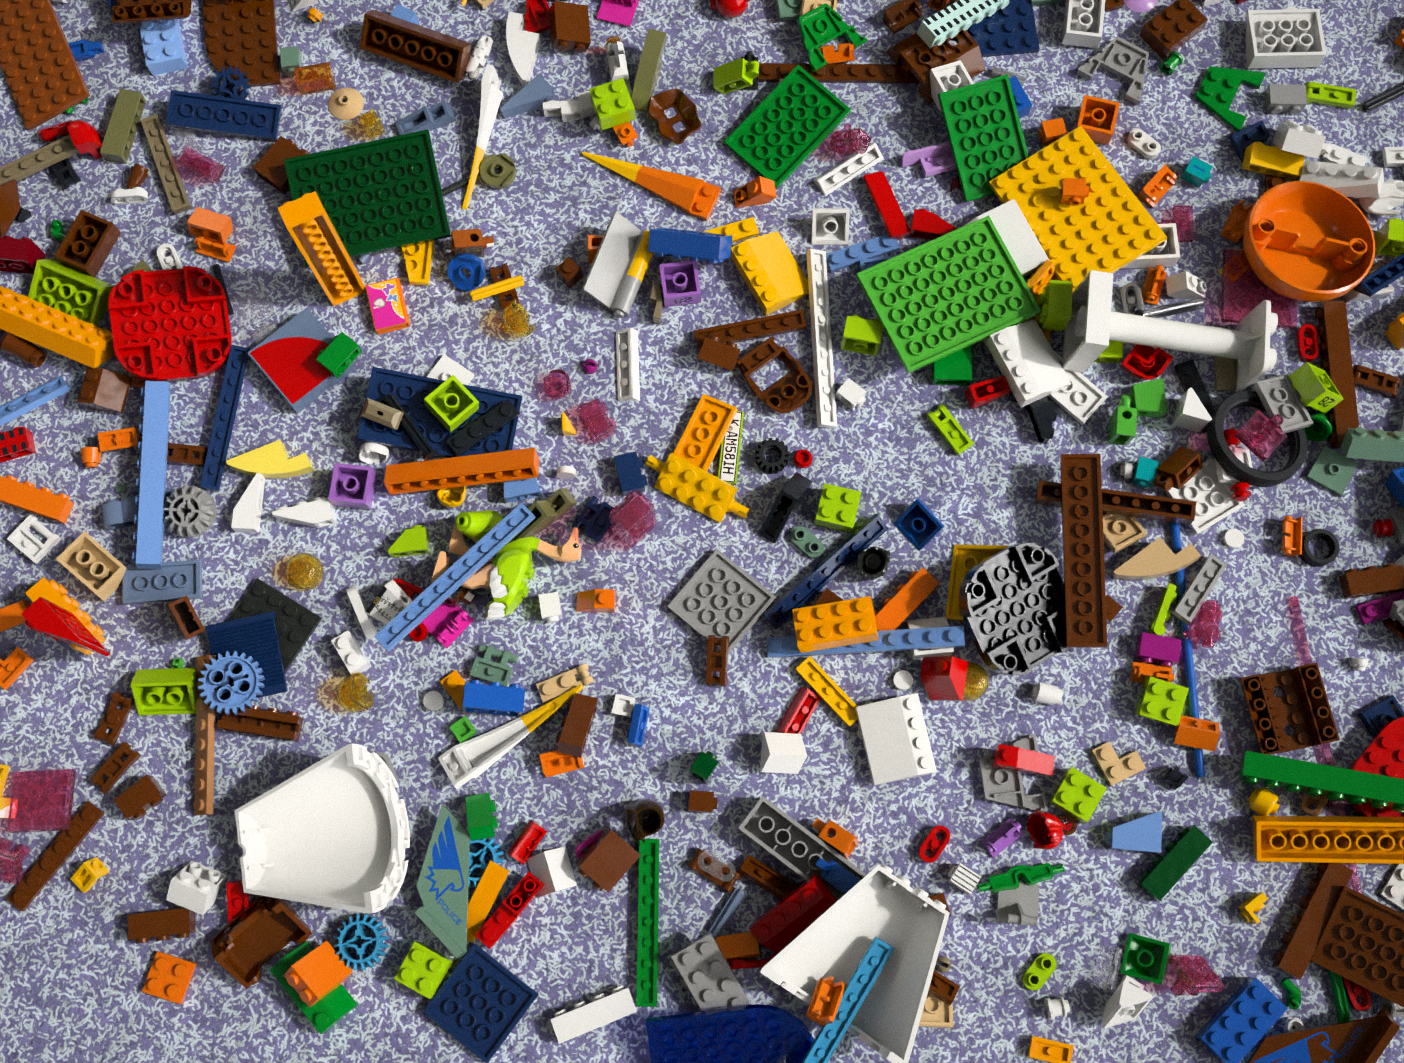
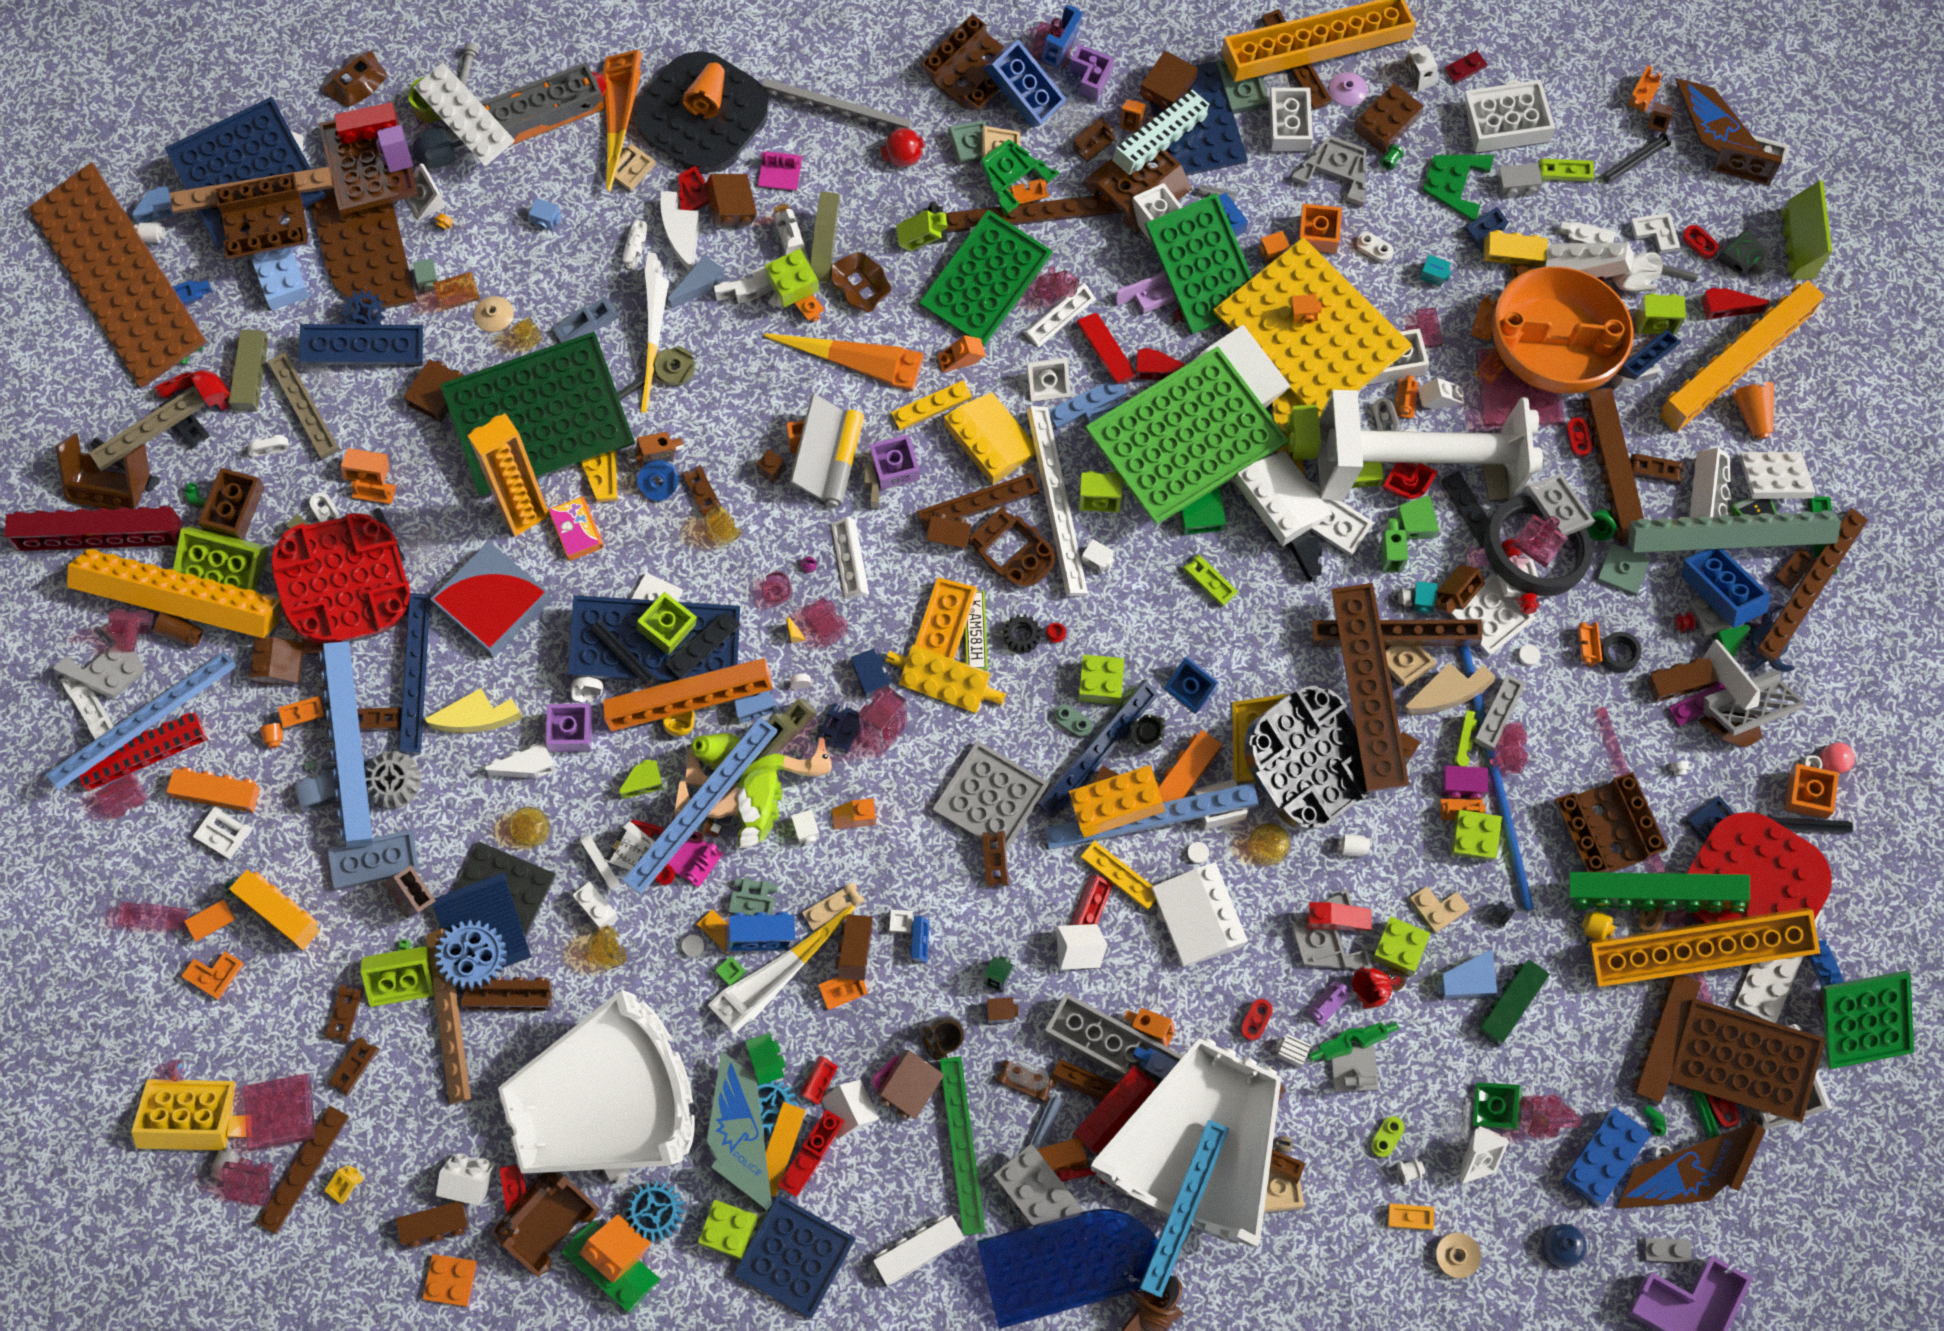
camera: 10 degrees left, 5 degrees down
(60, 625) = (285, 917): red slope -> none
(93, 565) = (295, 852): tan slope -> none
(136, 176) = (273, 422): reddish brown cone -> none
(140, 797) = (388, 1093): reddish brown brick -> none
(202, 164) = (345, 401): clear pink brick -> none
(248, 510) = (456, 770): white slope -> none
(264, 331) = (443, 574): clear brick -> none
(339, 355) = (533, 587): green brick -> none
(391, 416) = (603, 644): dark tan piece -> none
(415, 45) = (563, 241): reddish brown brick -> none
(496, 288) = (694, 493): yellow axle -> none
(690, 244) = (898, 418): blue brick -> none
(784, 506) = (1043, 686): black arch -> none
(825, 1001) = (1165, 1195): orange hinge -> none
(944, 677) = (1241, 842): red slope -> none
(987, 391) = (1243, 534): red slope -> none
(1041, 277) = (1284, 405): light orange plate -> none
(1157, 186) = (1395, 291): orange hinge -> none
(1172, 309) = (1430, 420): black axle -> none
(1191, 412) = (1464, 527): white slope -> none
(1197, 733) = (1518, 863): orange hinge -> none
(1254, 904) = (1604, 1033): yellow bracket -> none
(1299, 139) = (1538, 222): white brick -> none
(1315, 388) = (1592, 483): lime brick -> none

